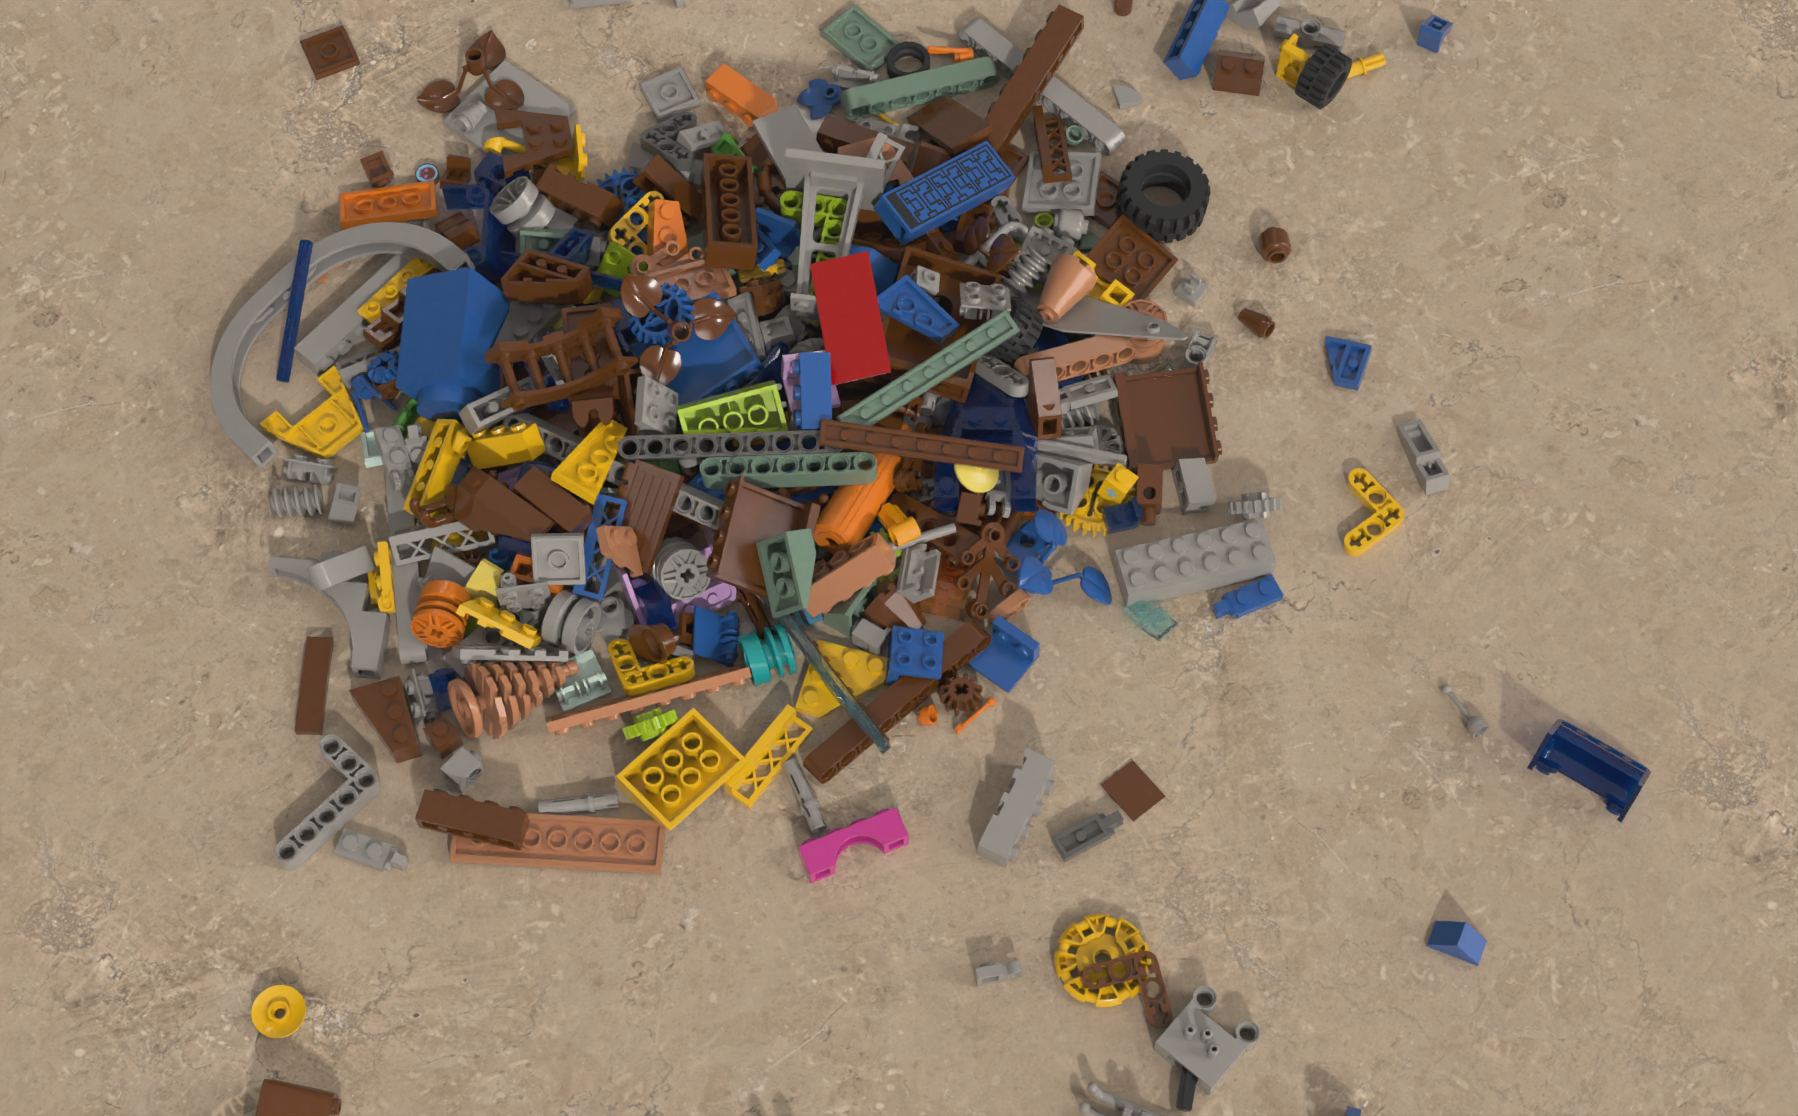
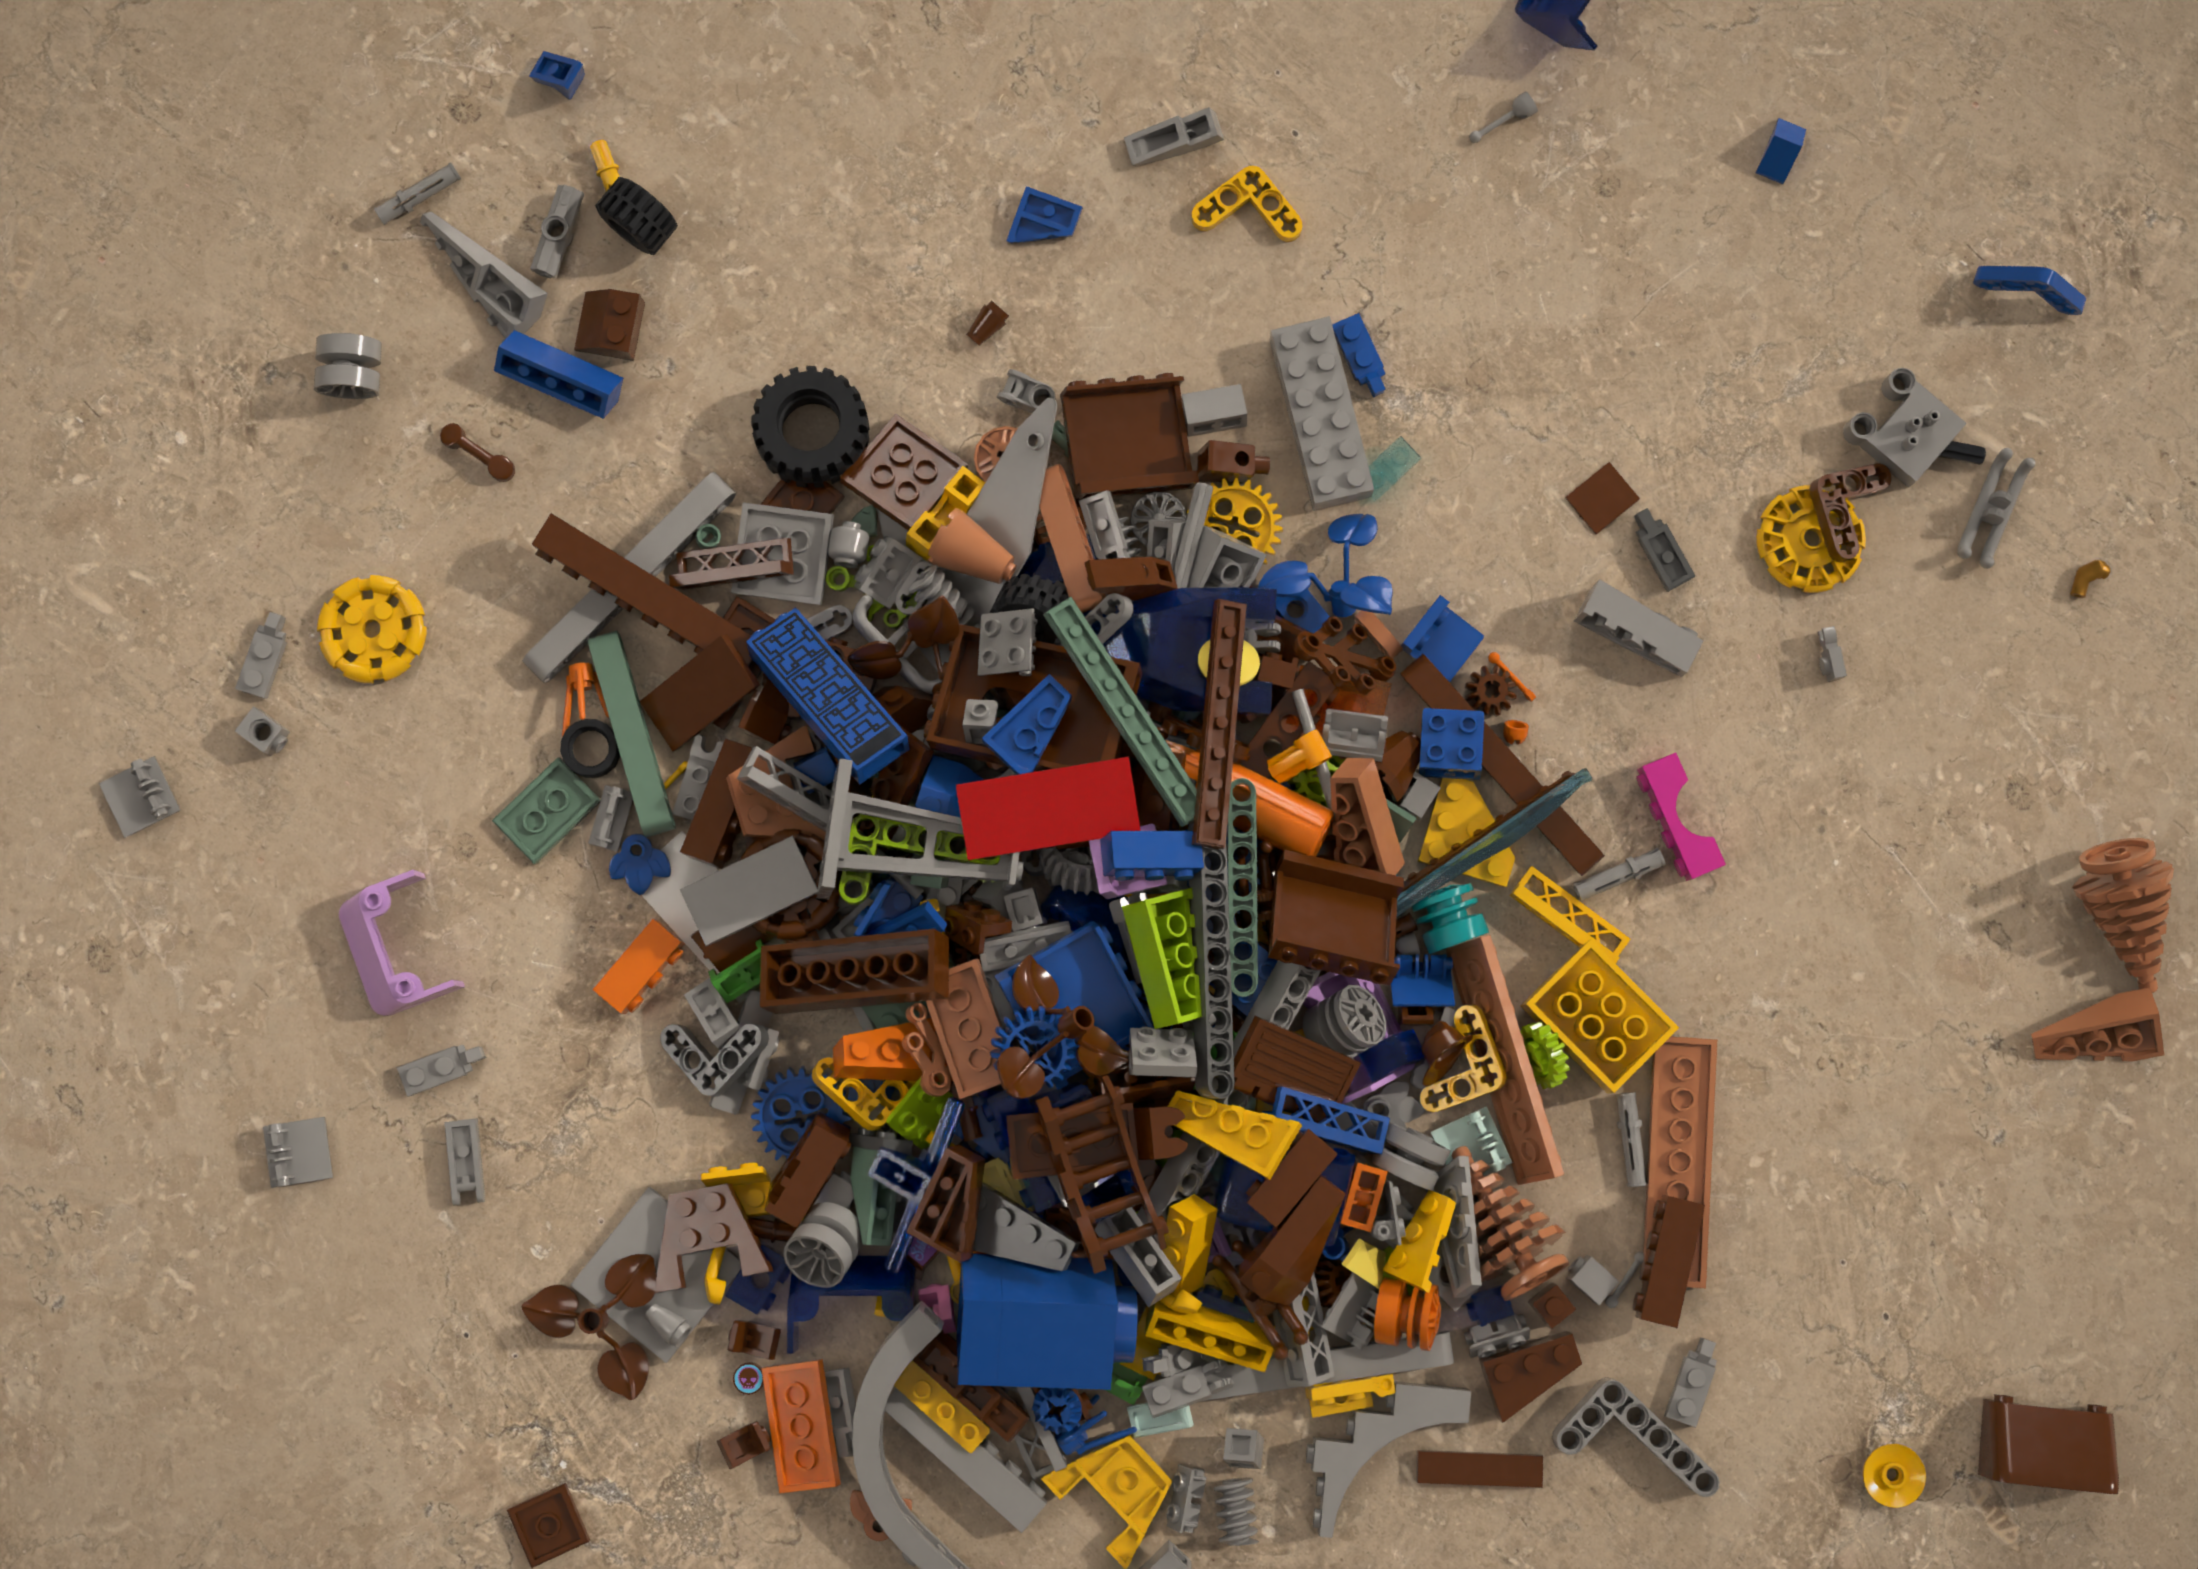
camera: 90 degrees left, 20 degrees up
(294, 311) = (969, 1535): clear blue axle -> none
(341, 568) = (1346, 1443): light grey beam -> none
(458, 230) = (849, 1331): reddish brown brick -> none
(558, 558) = (1363, 1168): light grey tile -> none
(621, 546) = (1341, 1093): nougat wing -> none
(661, 177) = (797, 1052): reddish brown brick -> none
(669, 94) = (627, 1062): light grey tile -> none
(788, 570) = (1376, 886): sand green slope -> none
(1117, 485) = (1232, 496): yellow brick -> none
(1122, 516) = (1269, 492): clear blue bracket -> none
(1126, 96) = (645, 470): light grey tile -> none
(1191, 290) = (936, 400): light grey tile -> none
(1255, 505) = (1251, 336): light grey gear -> none
(1274, 245) = (878, 294): reddish brown head -> none
(1291, 61) = (612, 256): yellow bracket -> none

